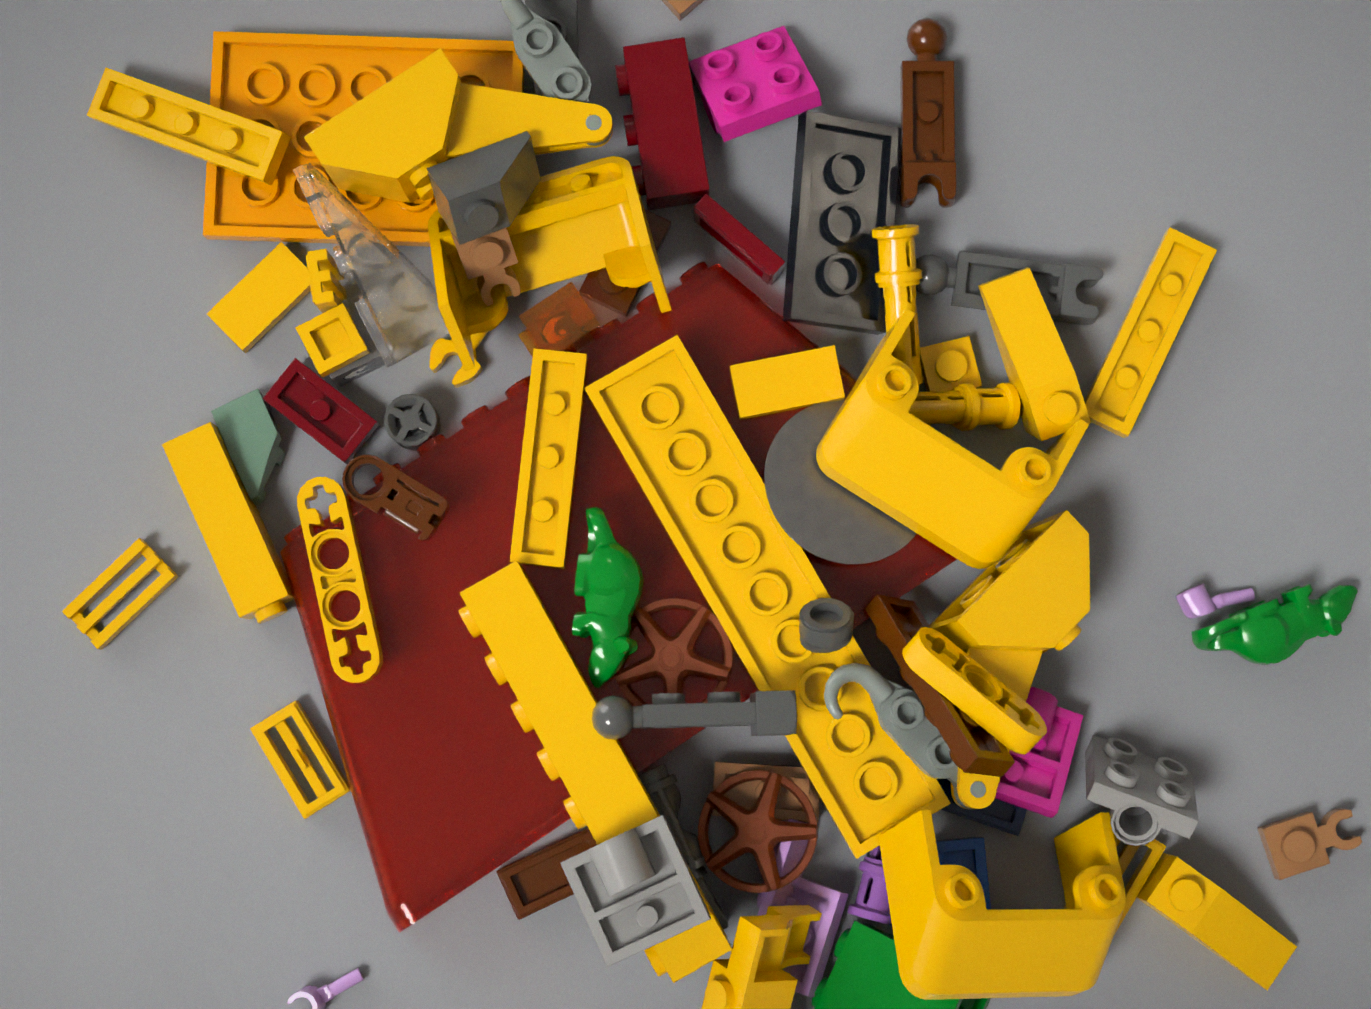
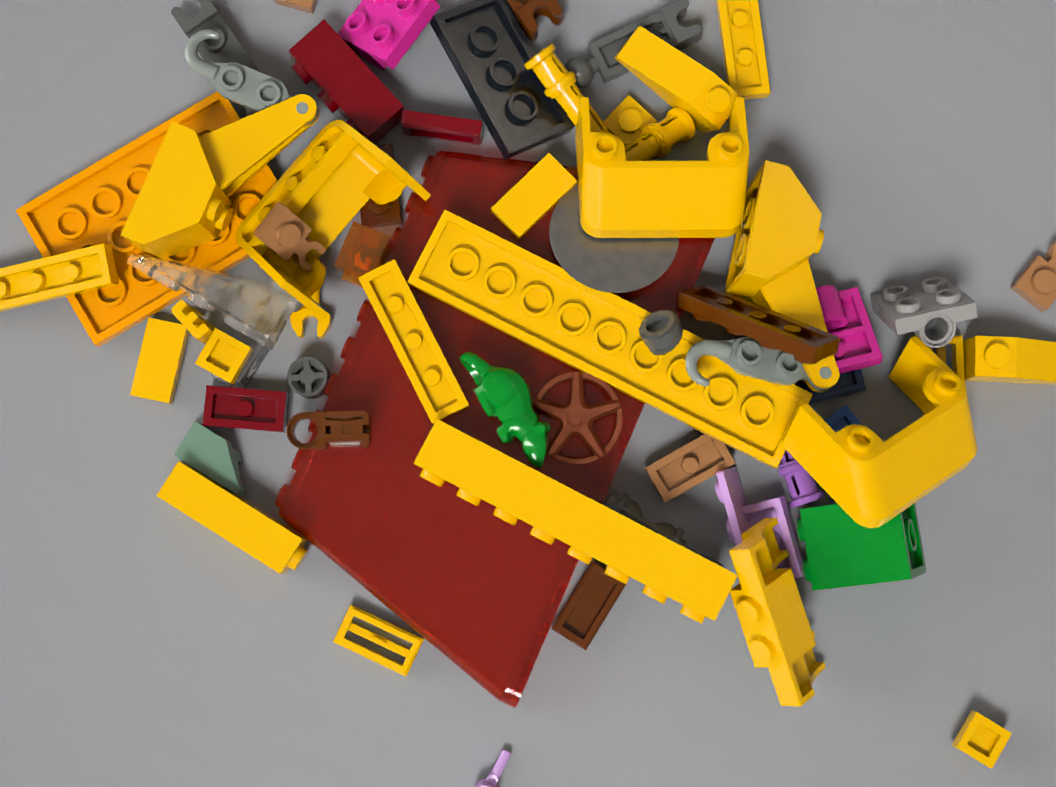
camera: 30 degrees left, 0 degrees up
(87, 624) = (176, 607): yellow tile -> none
(333, 581) = (326, 510): yellow beam -> none
(485, 187) = (259, 192): dark grey slope -> none
(635, 890) = (652, 577): light grey plate -> none
(757, 831) = (701, 493): copper wheel -> none
(766, 713) = (658, 412): dark grey plate -> none
(974, 690) = (783, 310): yellow beam -> none
(1197, 601) = (881, 170): lavender hand -> none
(1275, 631) = (942, 152): green animal -> none

